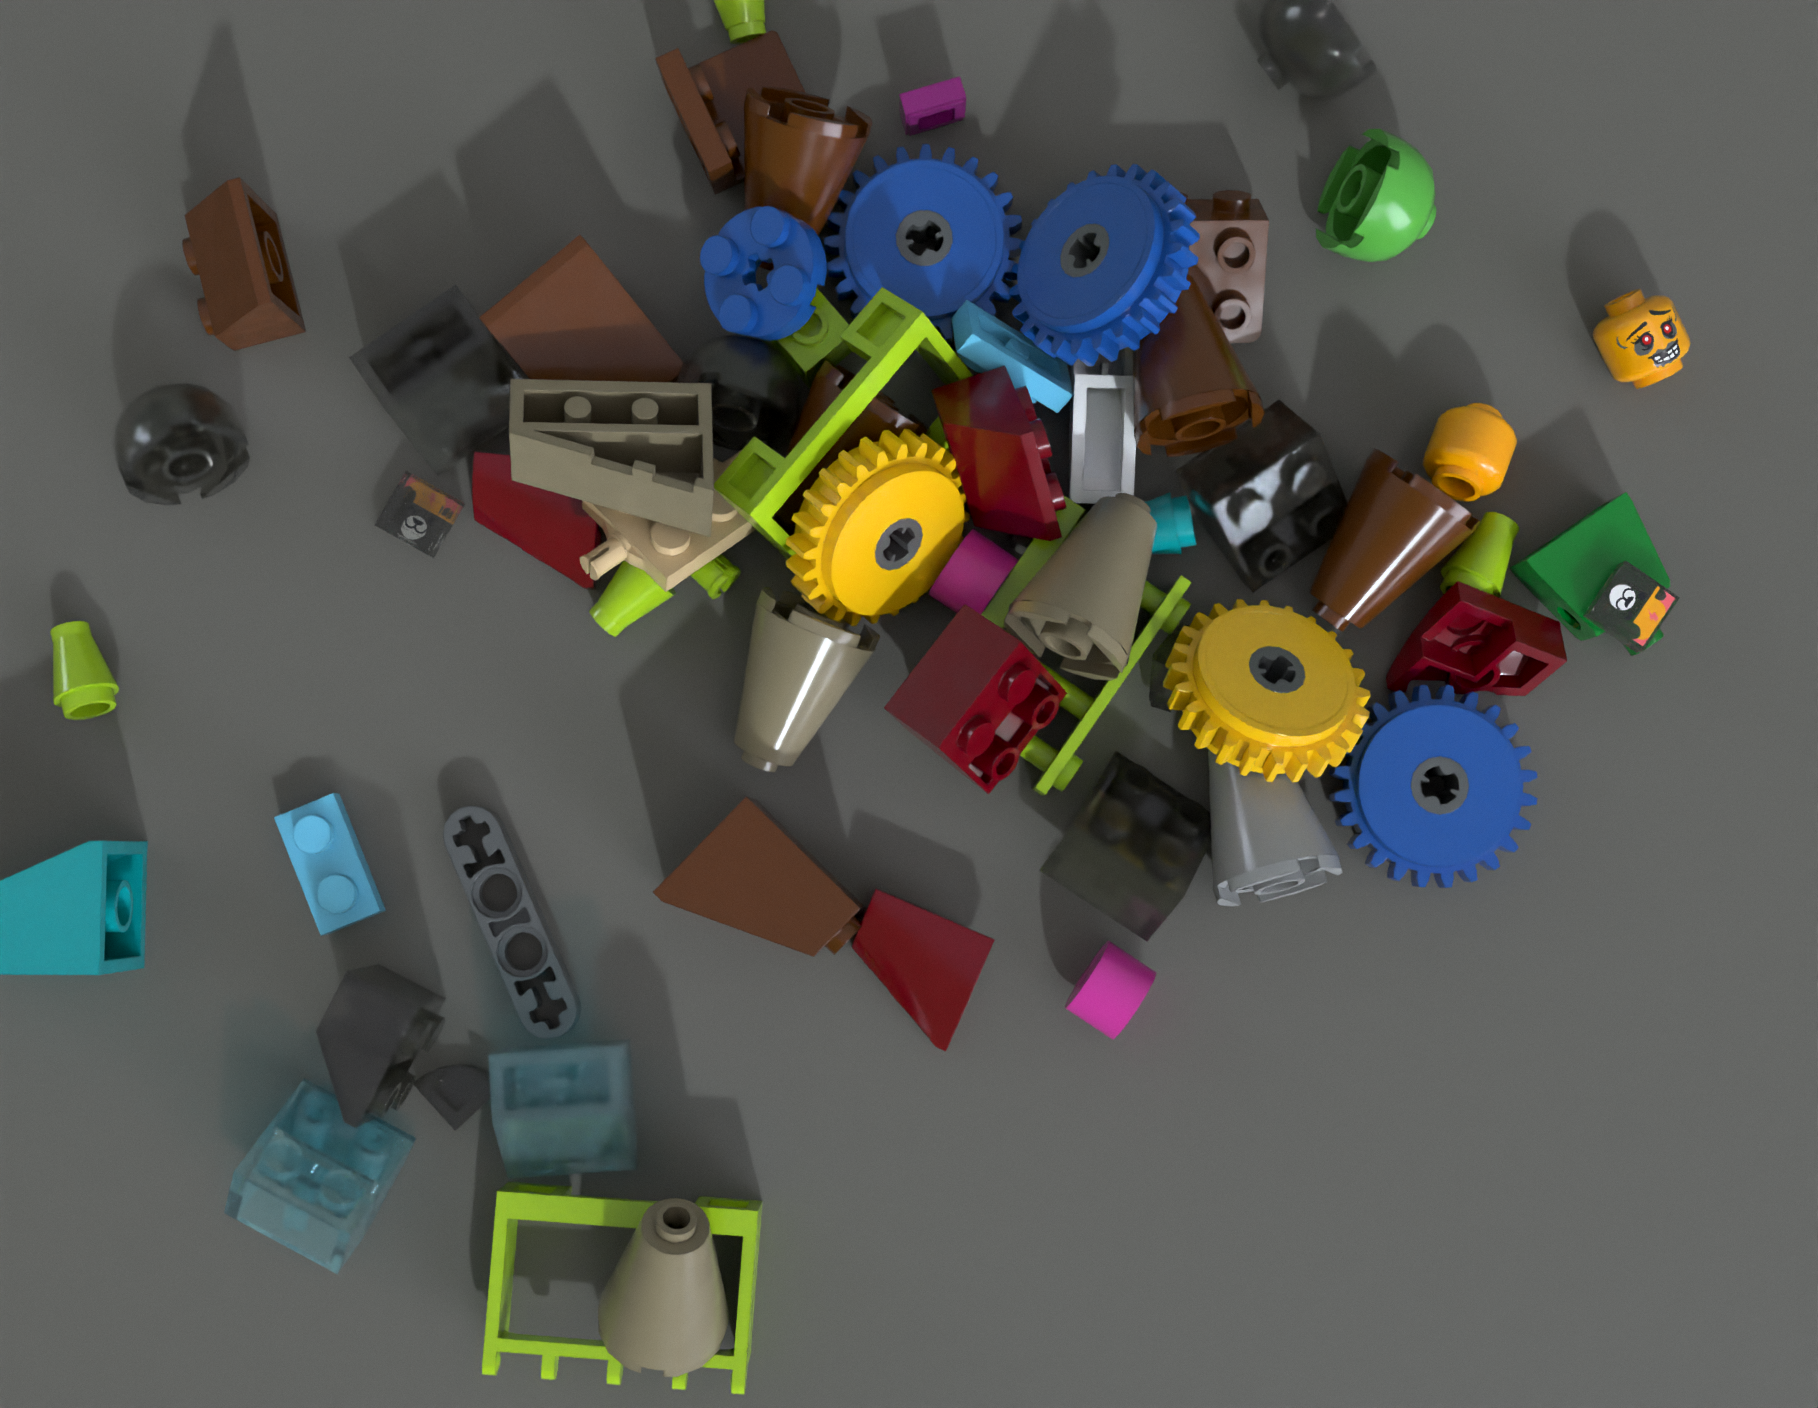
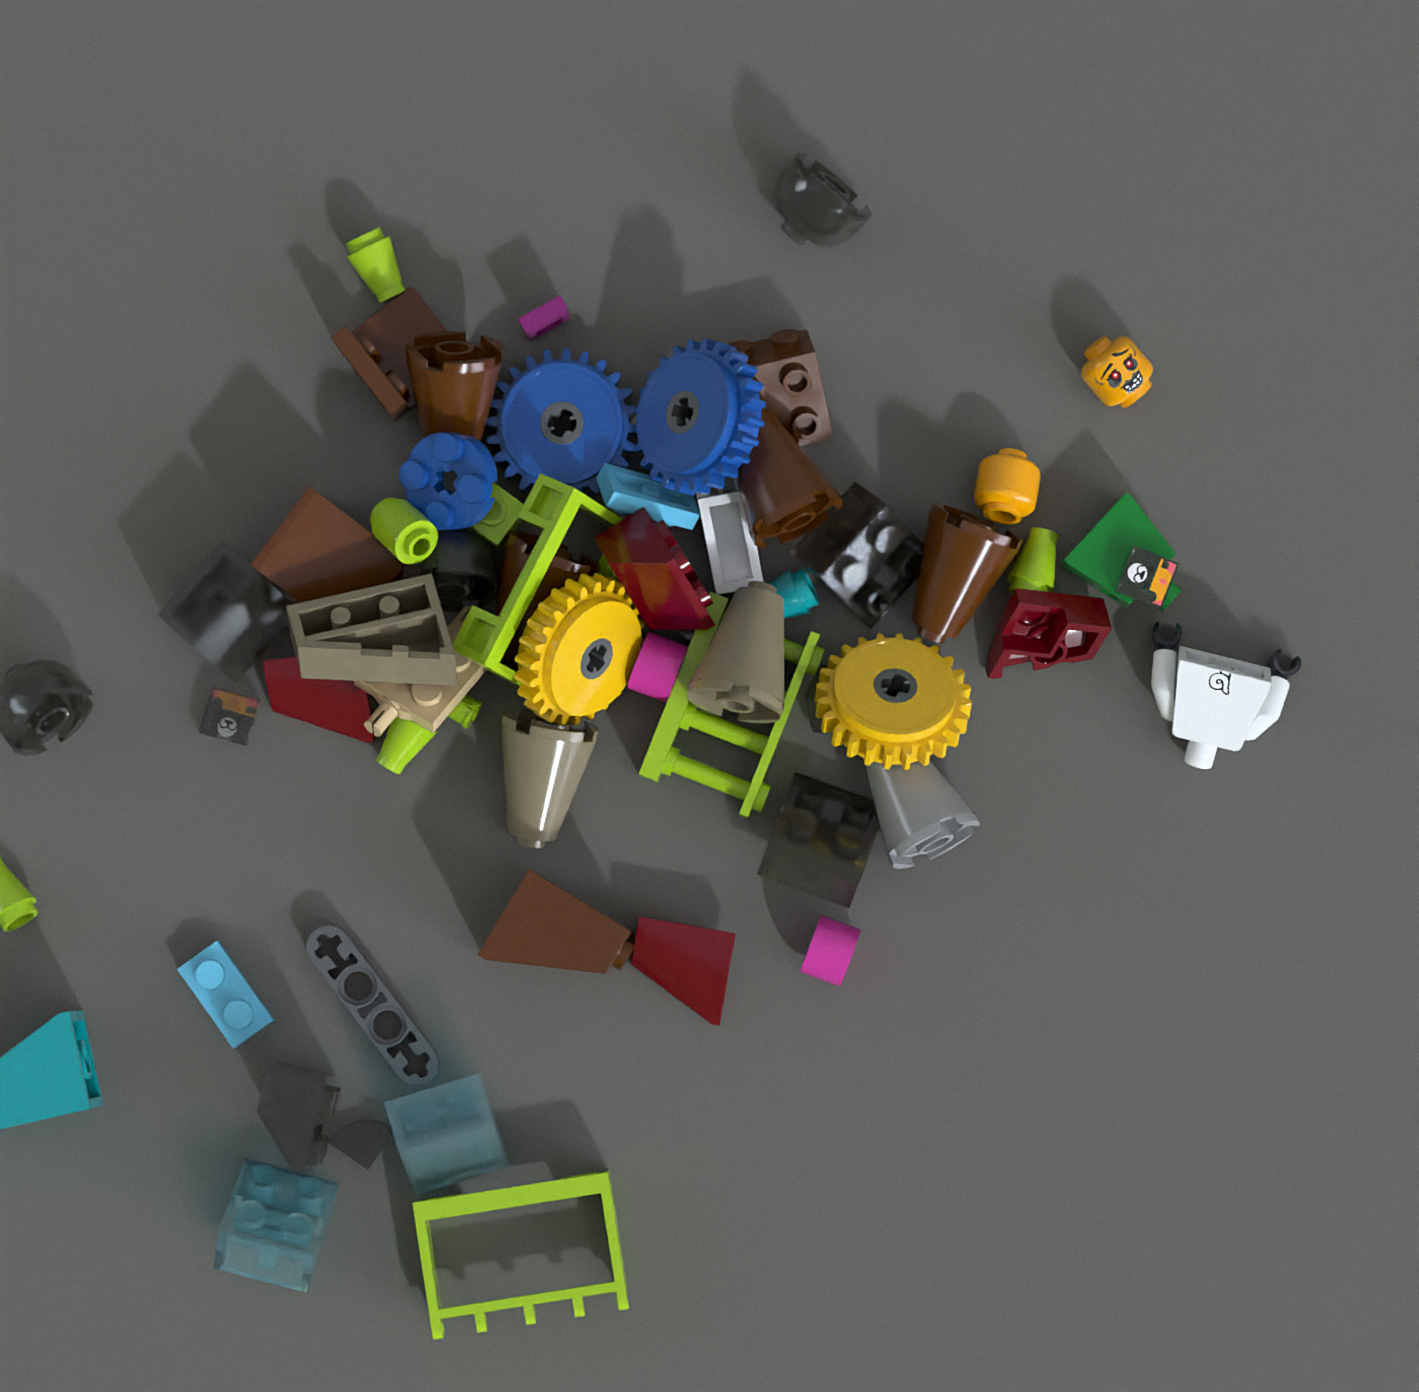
camera: 10 degrees left, 0 degrees up
(241, 268) = (54, 564): reddish brown slope -> none
(666, 1293) = (554, 1244): dark tan cone -> none
(689, 322) = (403, 530): none -> lime brick
(977, 698) = (681, 759): dark red slope -> none
(1377, 199) = (895, 314): bright green cylinder -> none
(1478, 795) = (1034, 779): blue gear -> none
(1678, 781) = (1215, 697): none -> white torso

